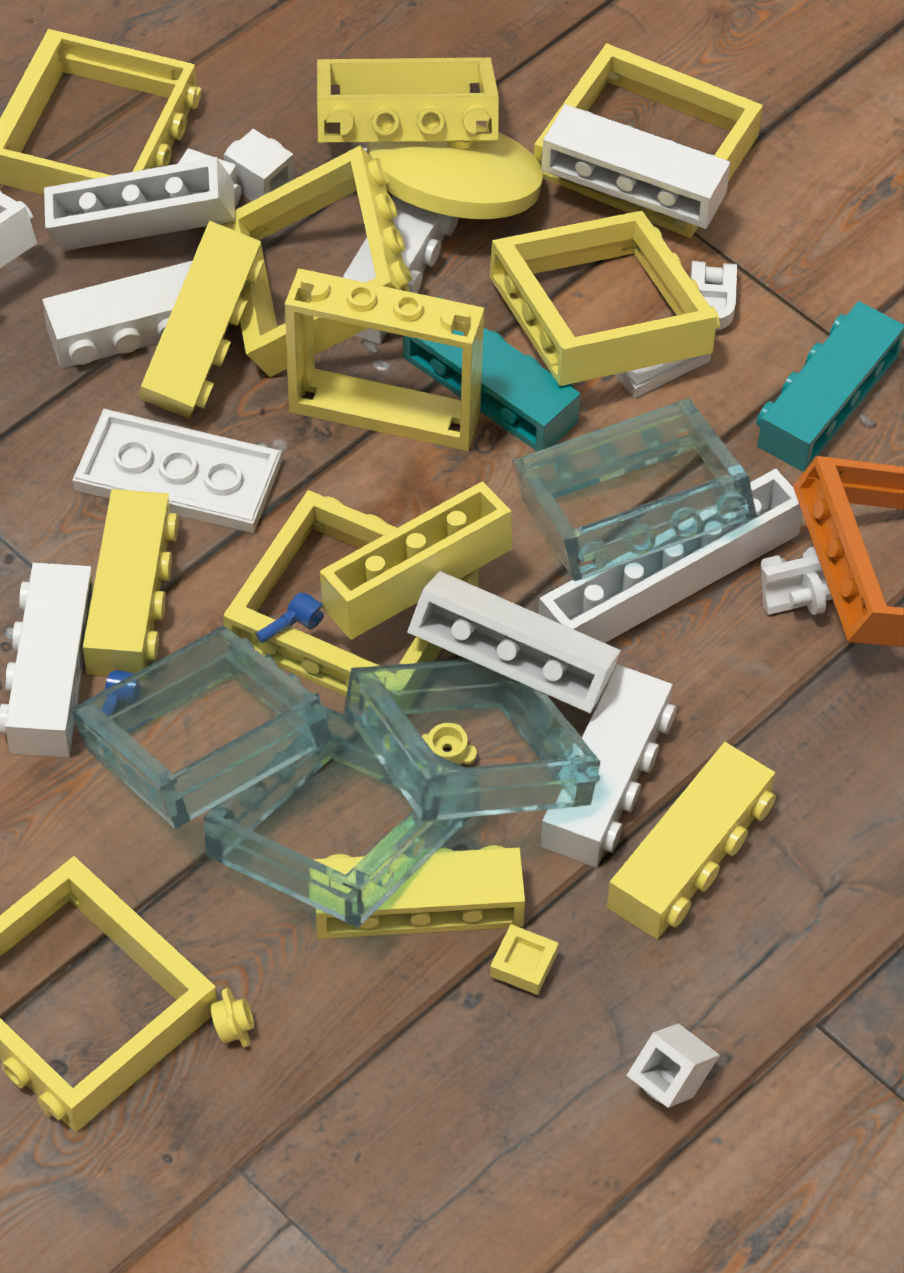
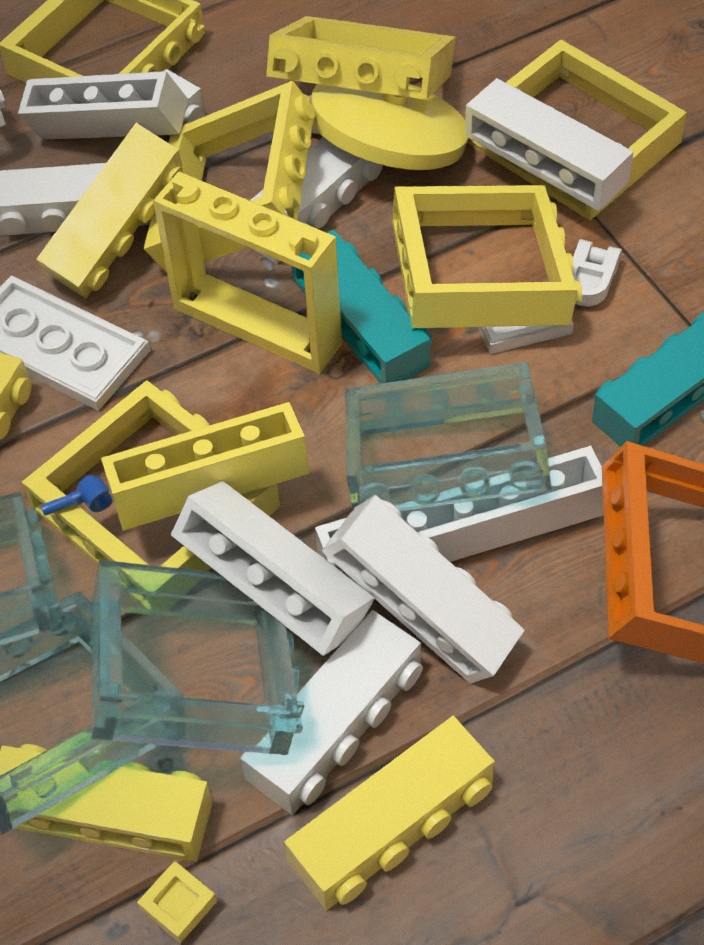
camera: 20 degrees right, 0 degrees up
(260, 164) = (223, 88): white brick -> none
(454, 737) = (185, 644): light yellow plate -> none
(663, 634) = (424, 589): none -> white brick
(794, 584) = (577, 564): white hips -> none

